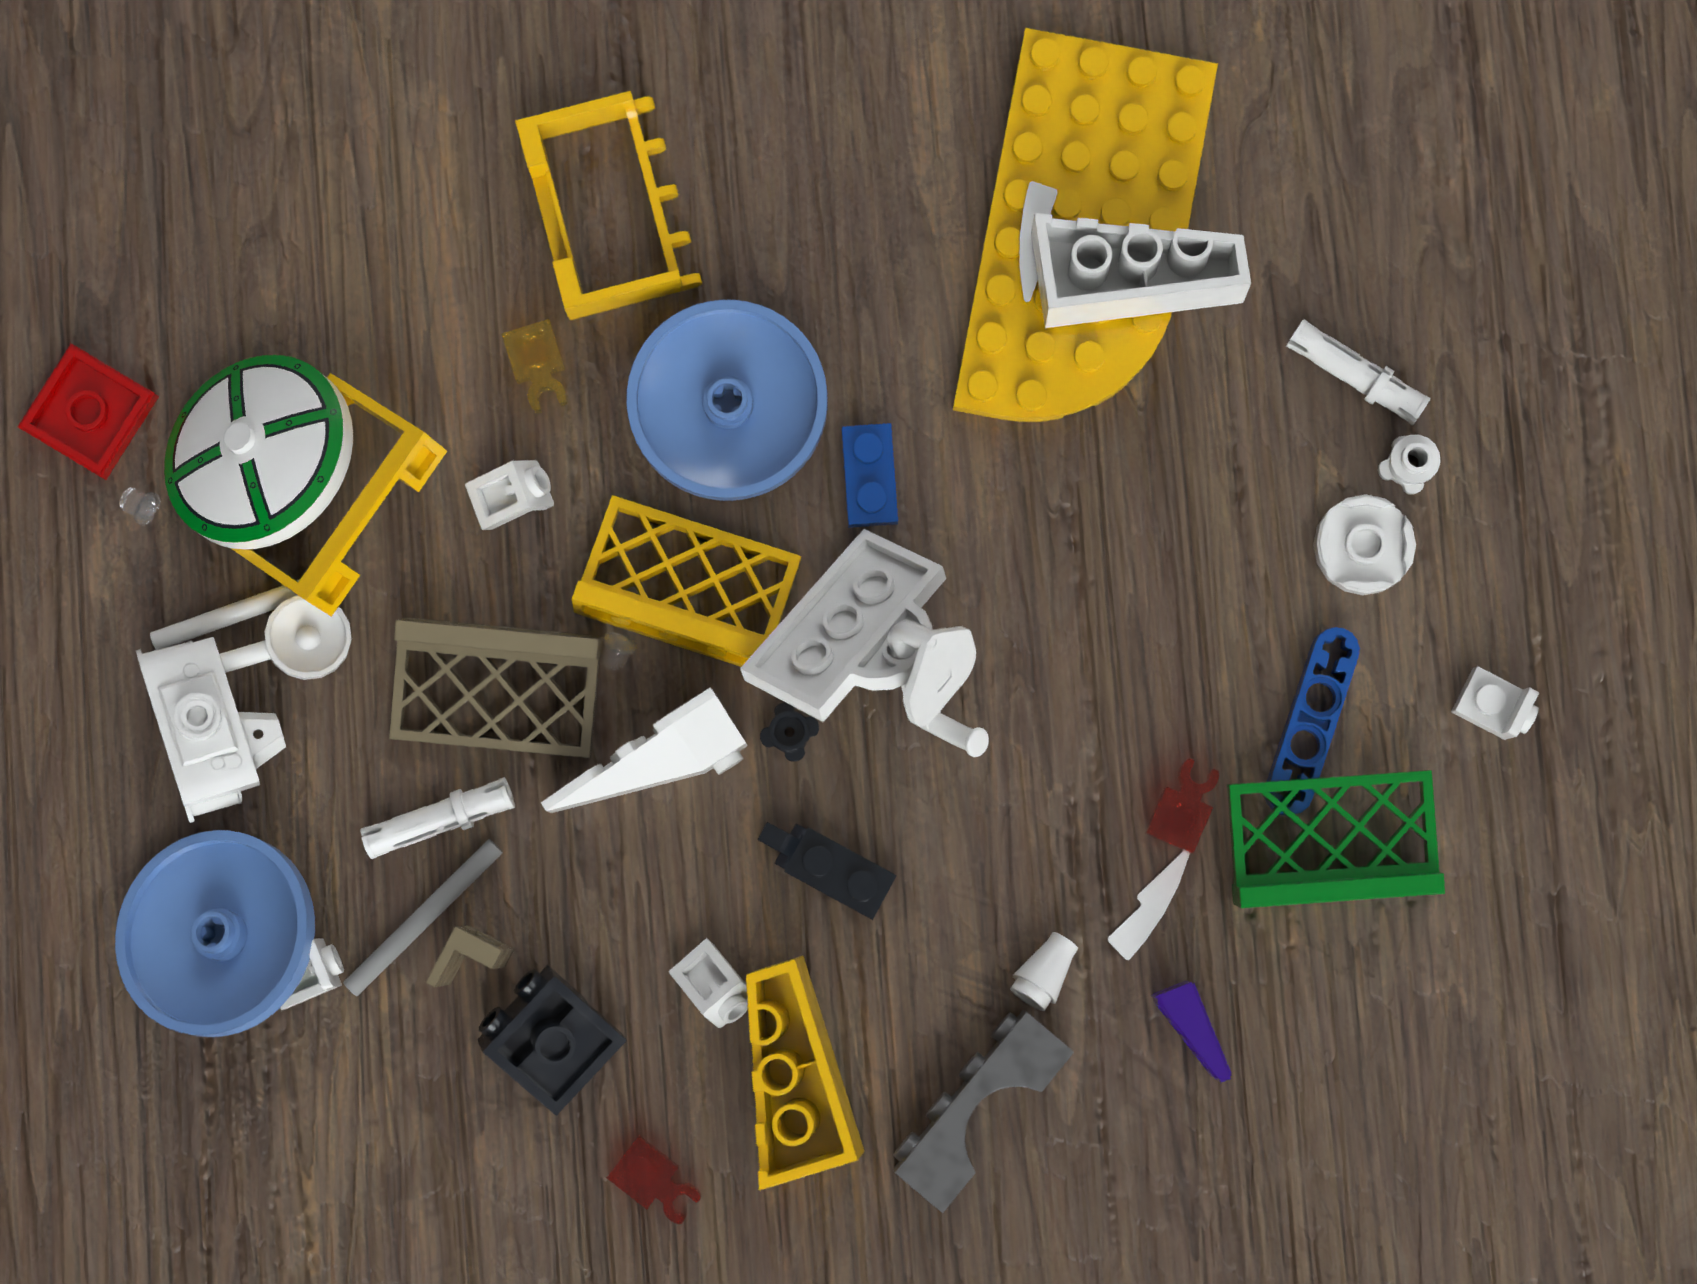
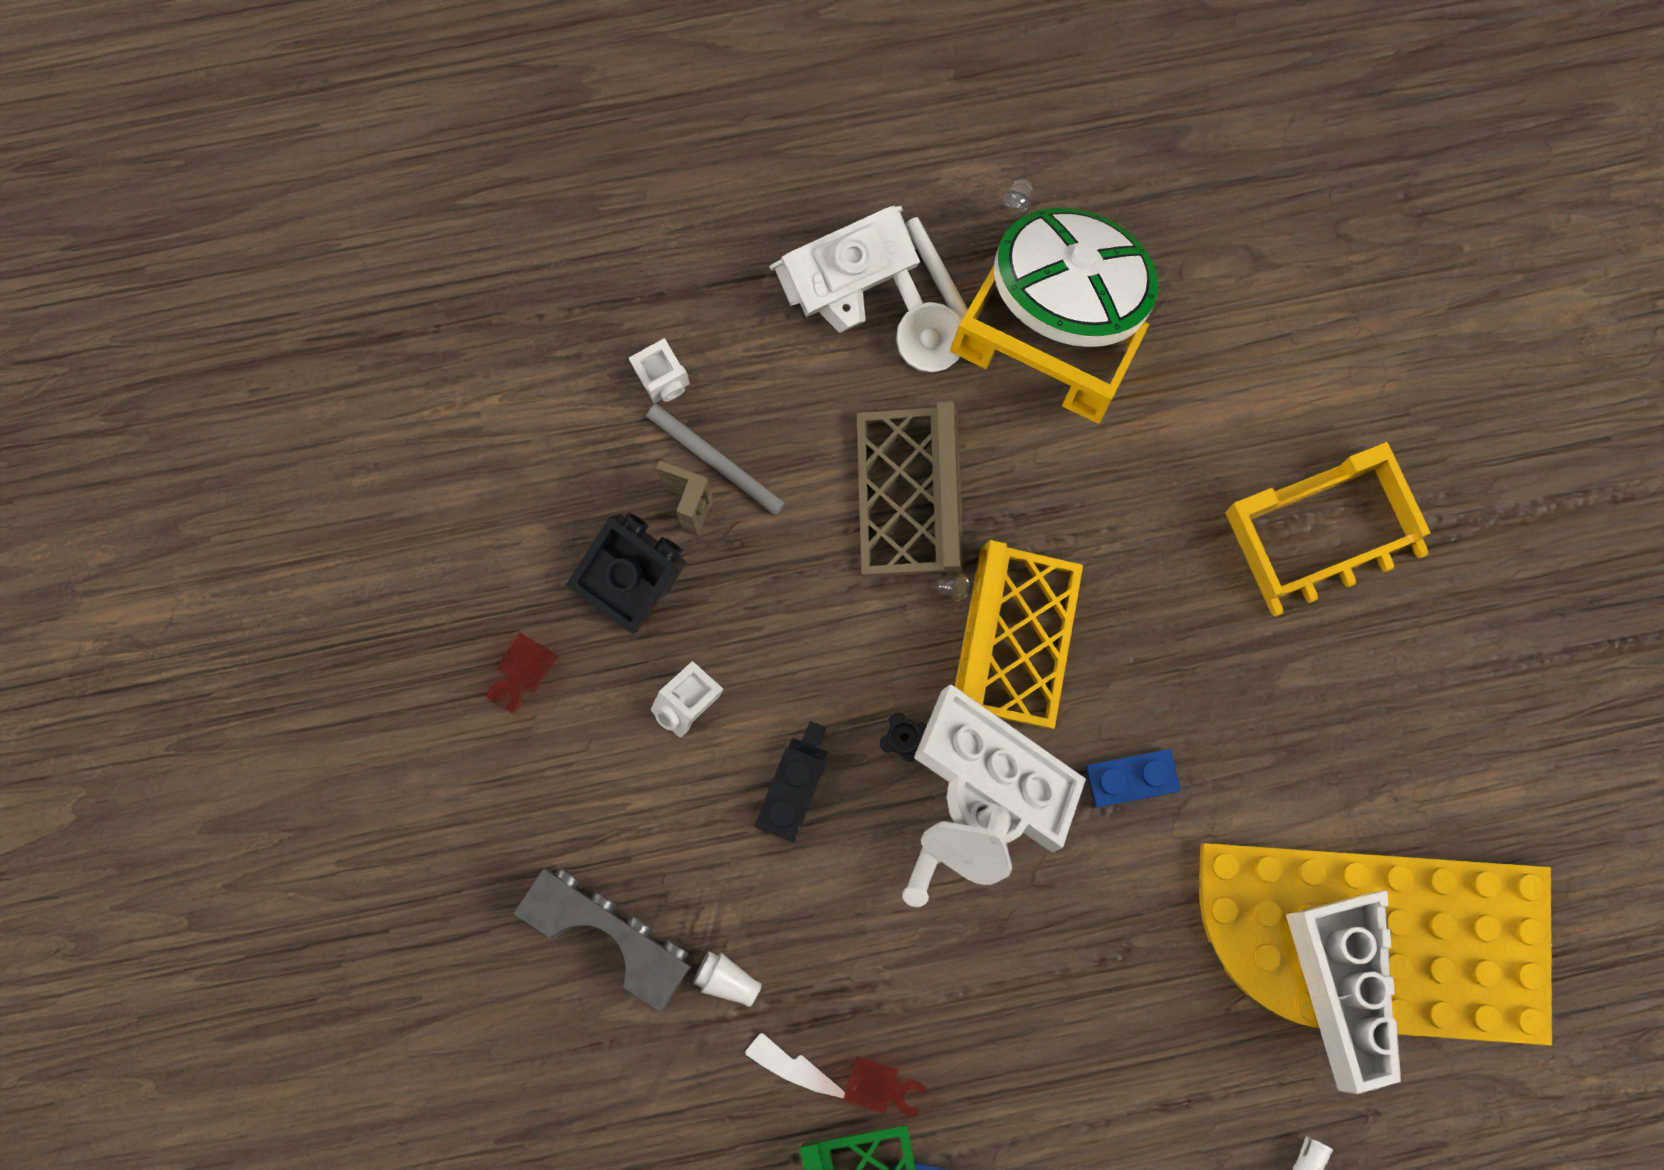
camera: 85 degrees right, 5 degrees down
(88, 411) = (1088, 146): red tile -> none
(215, 933) = (683, 298): medium blue dish -> none
(450, 813) = (801, 468): white pin -> none
(509, 493) = (1072, 481): white bracket -> none
(536, 357) = (1188, 486): clear yellow plate -> none
(683, 746) = (881, 648): white wedge -> none
(727, 400) = (1178, 648): medium blue dish -> none
(796, 1081) = (610, 778): yellow wedge -> none
(1038, 200) = (1399, 896): white sticker -> none
(1189, 1018) = (701, 1111): dark purple slope -> none

